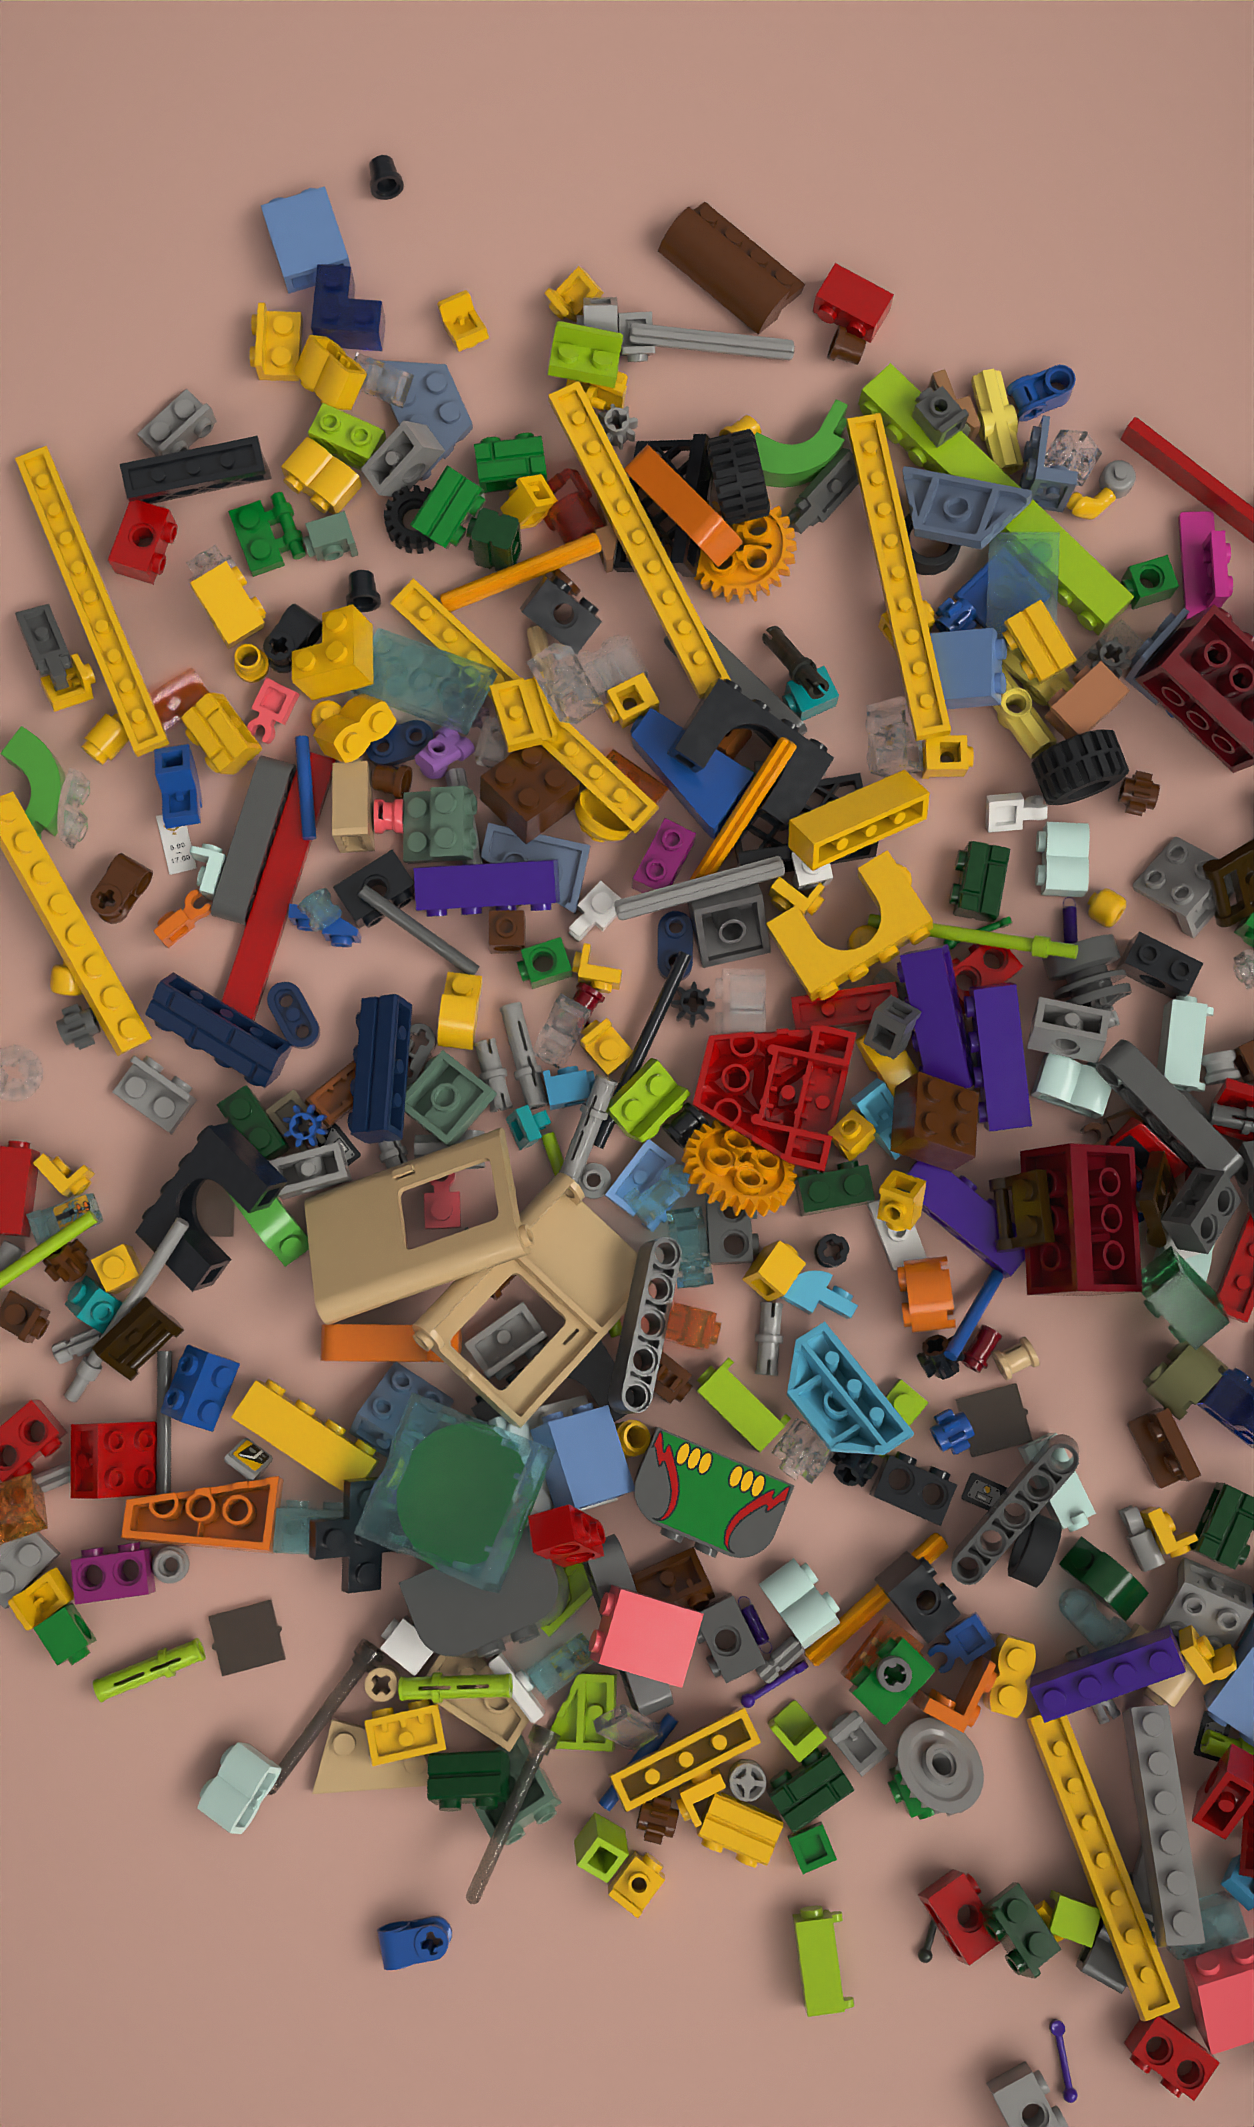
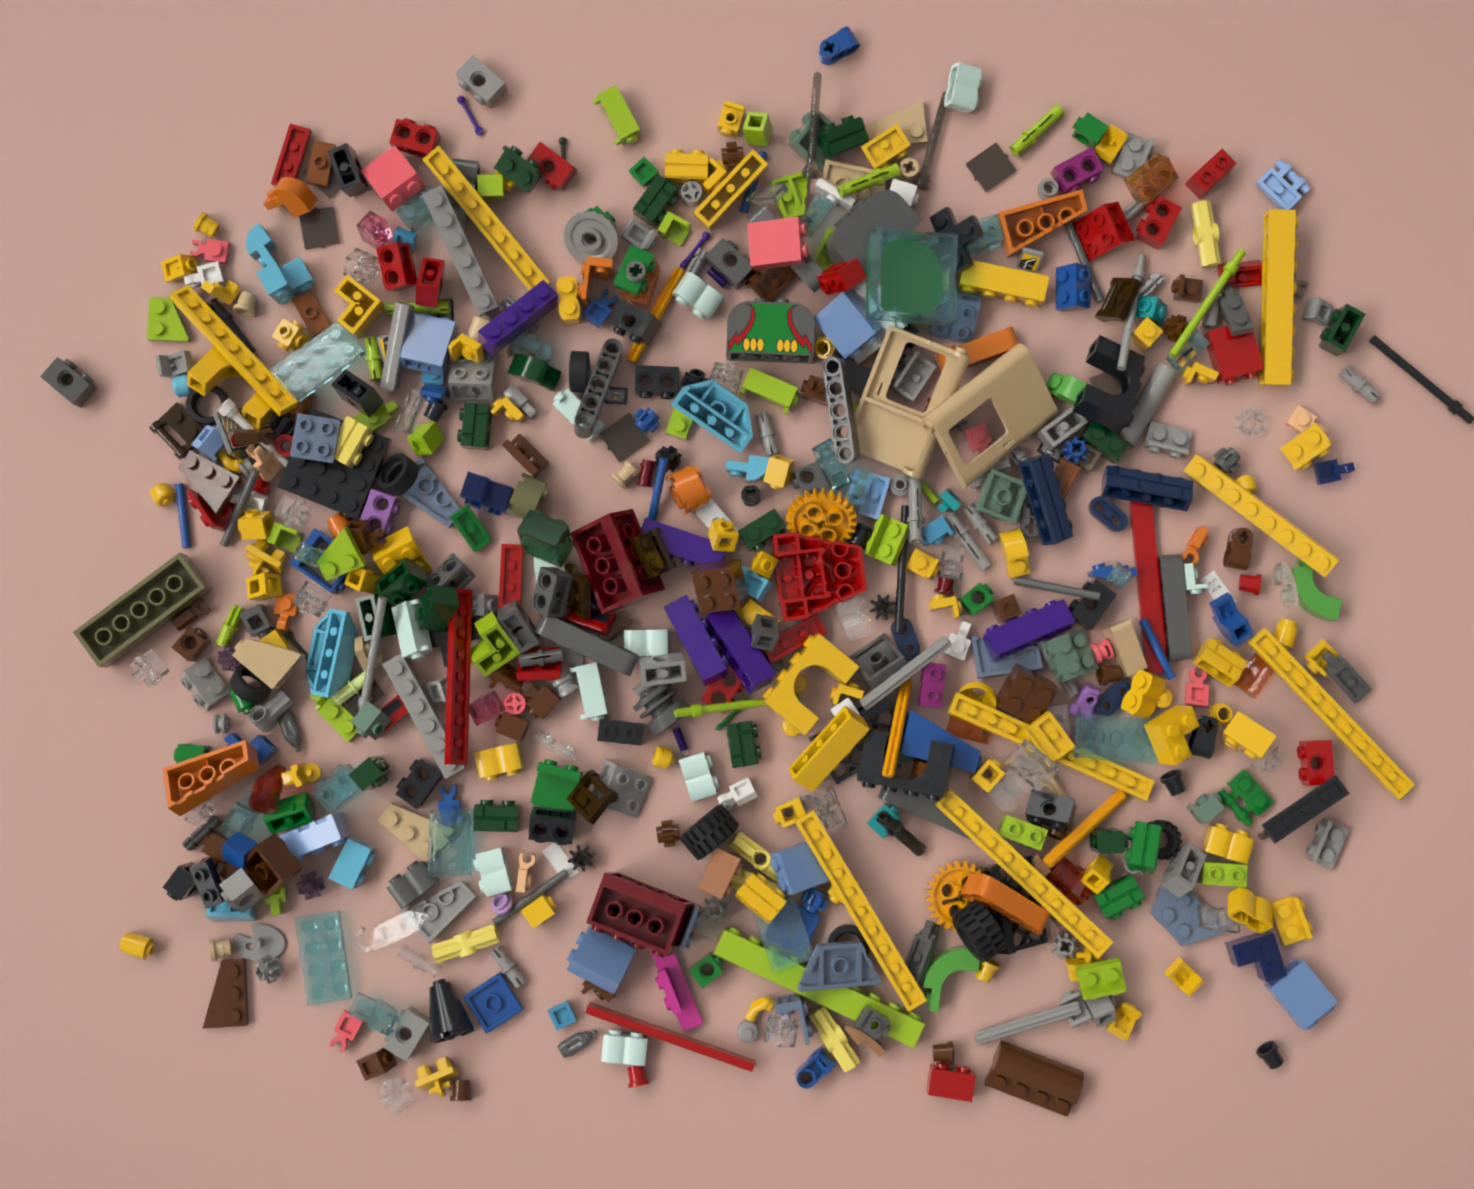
camera: 165 degrees right, 5 degrees up
(124, 831) = (1250, 583): none -> red piece
(157, 1163) = (1148, 403): none -> light grey brick
(617, 603) = (1022, 832): none -> lime brick
(692, 1327) = (814, 420): clear orange brick -> none

